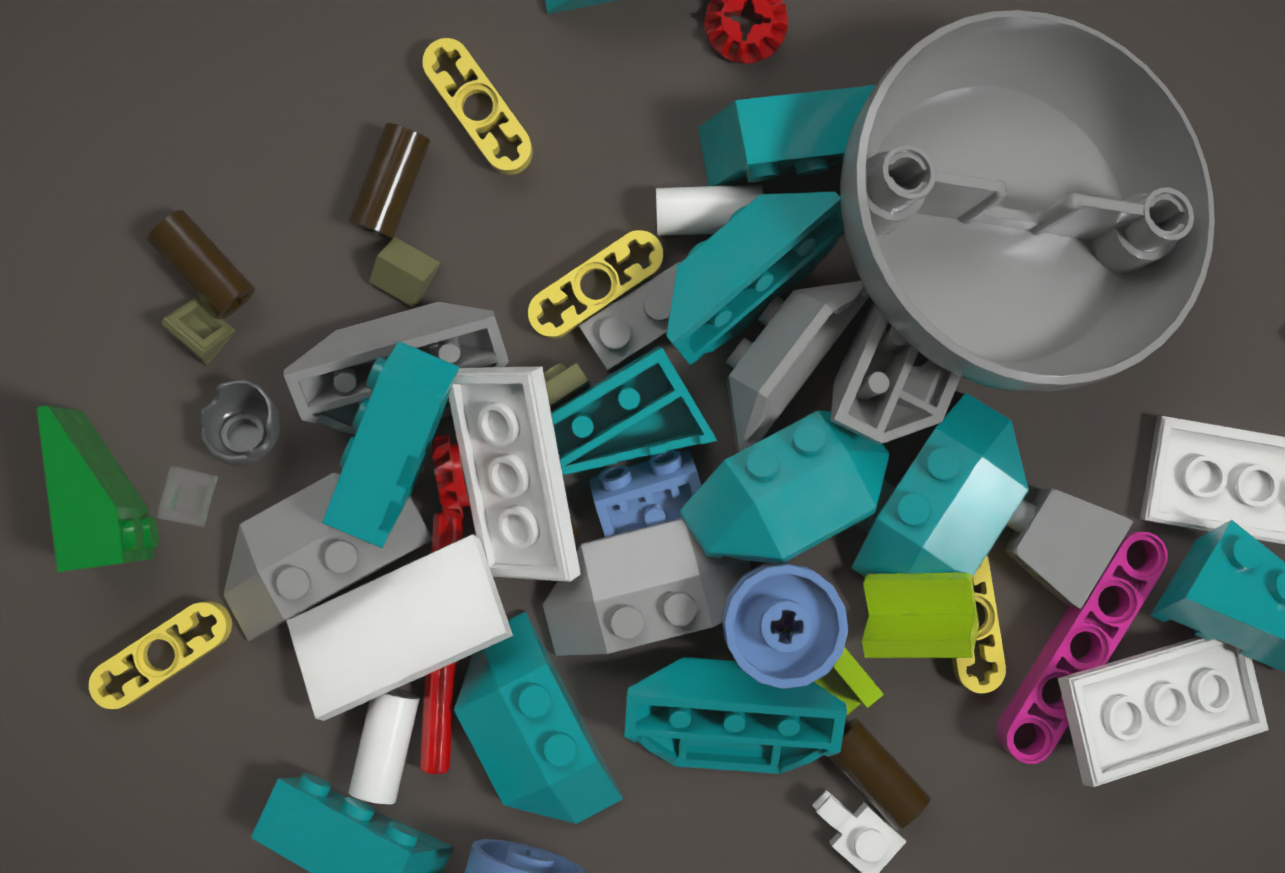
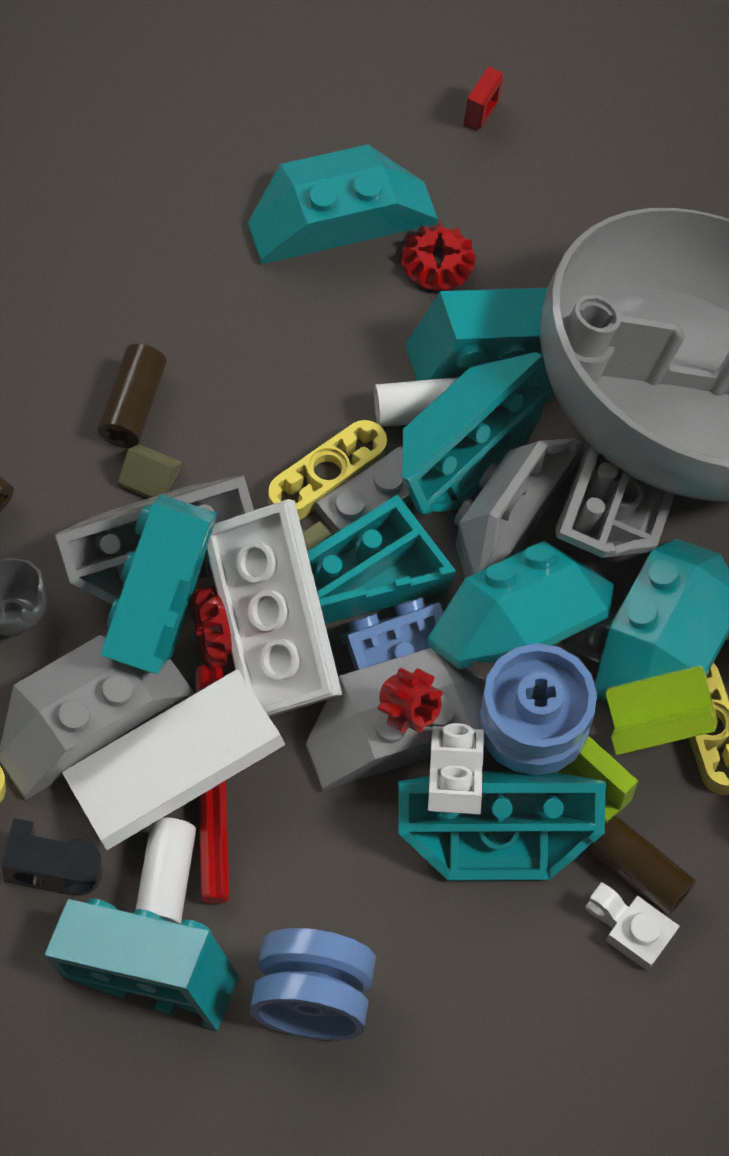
camera: 10 degrees left, 25 degrees down
(265, 723) = (50, 864): none -> black leg
(467, 67) = (208, 355): light yellow beam -> none
(532, 731) = (311, 852): teal wedge -> none
(646, 613) = (410, 700): none -> red gear
(688, 690) = (456, 769): none -> white slope

